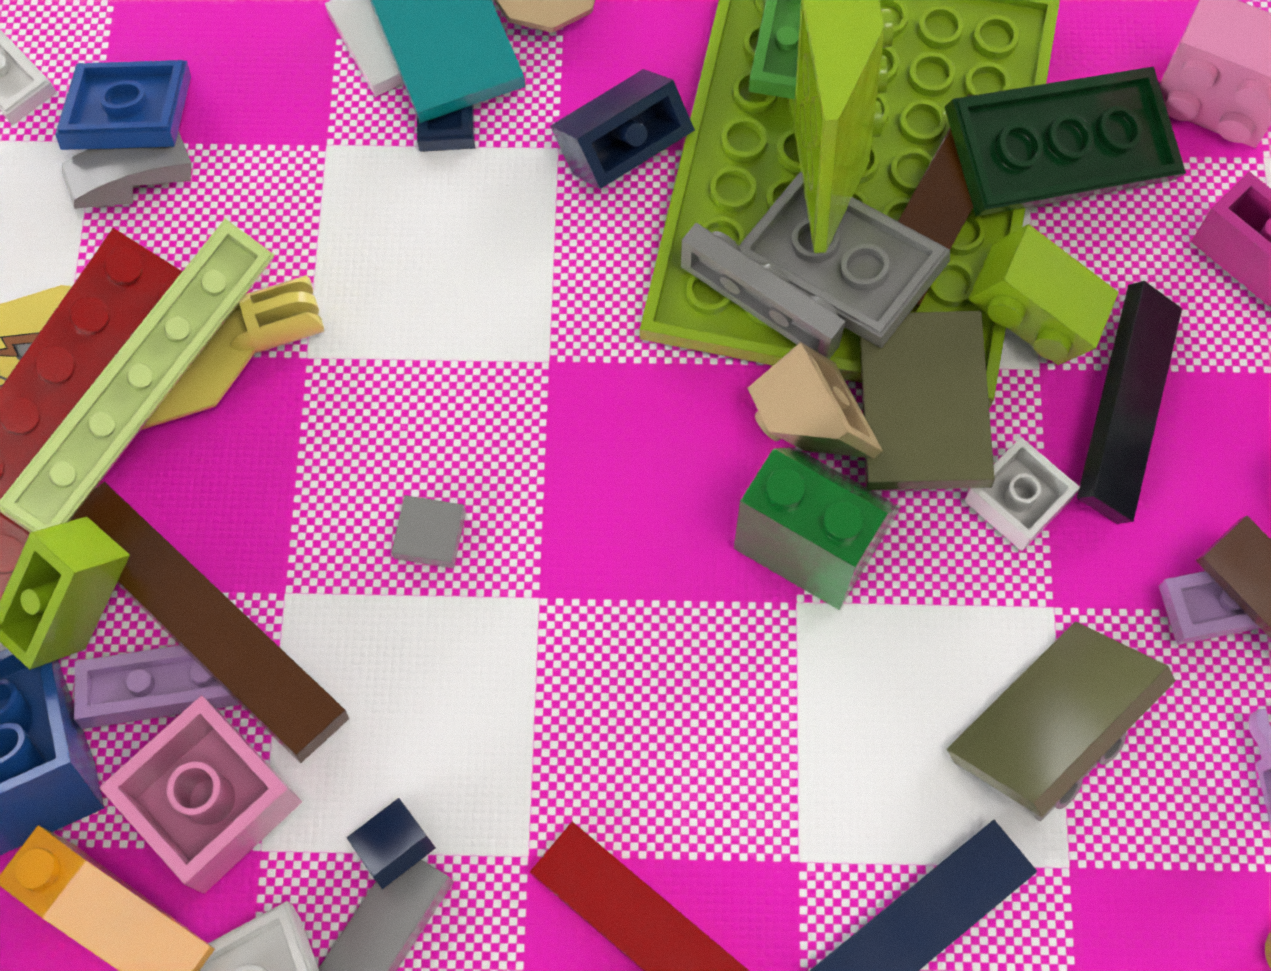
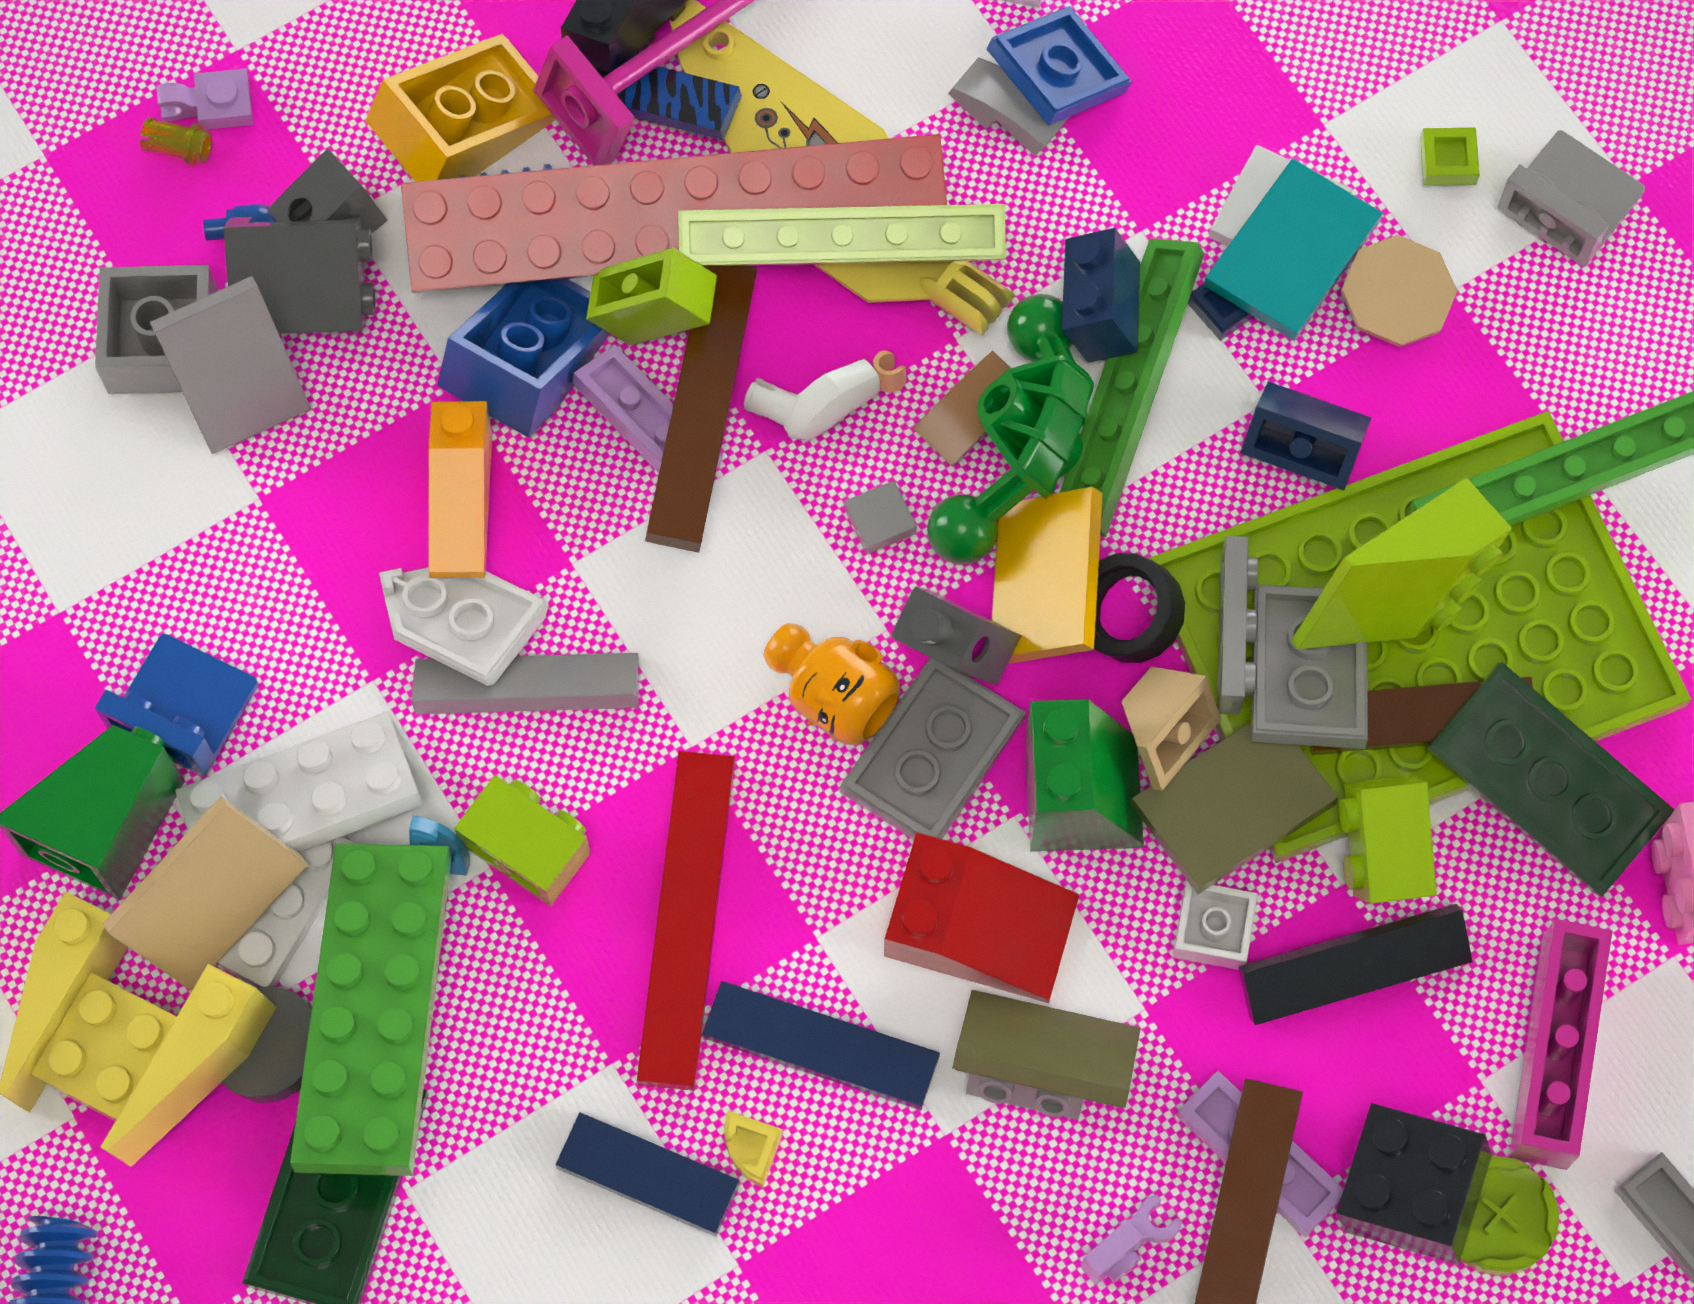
camera: 55 degrees right, 0 degrees up
(200, 795) = (580, 493): bright pink brick -> none
(283, 505) = (826, 398): none -> white arm
(368, 203) = (1101, 295): none -> dark blue brick
(387, 382) = (953, 422): none -> medium nougat slope
(390, 843) = (634, 643): dark blue tile -> none
(444, 328) = (1033, 421): none -> green piece
(468, 244) = (1132, 380): none -> bright green plate
(573, 675) = (835, 683): none -> light orange piece
(598, 421) = (1049, 573): none -> yellow tile
(602, 536) = (950, 633): none -> dark grey torso
(632, 375) = (1166, 621): none -> black tyre
(690, 635) = (932, 752): none -> light grey tile
(882, 699) = (979, 919): none -> red slope

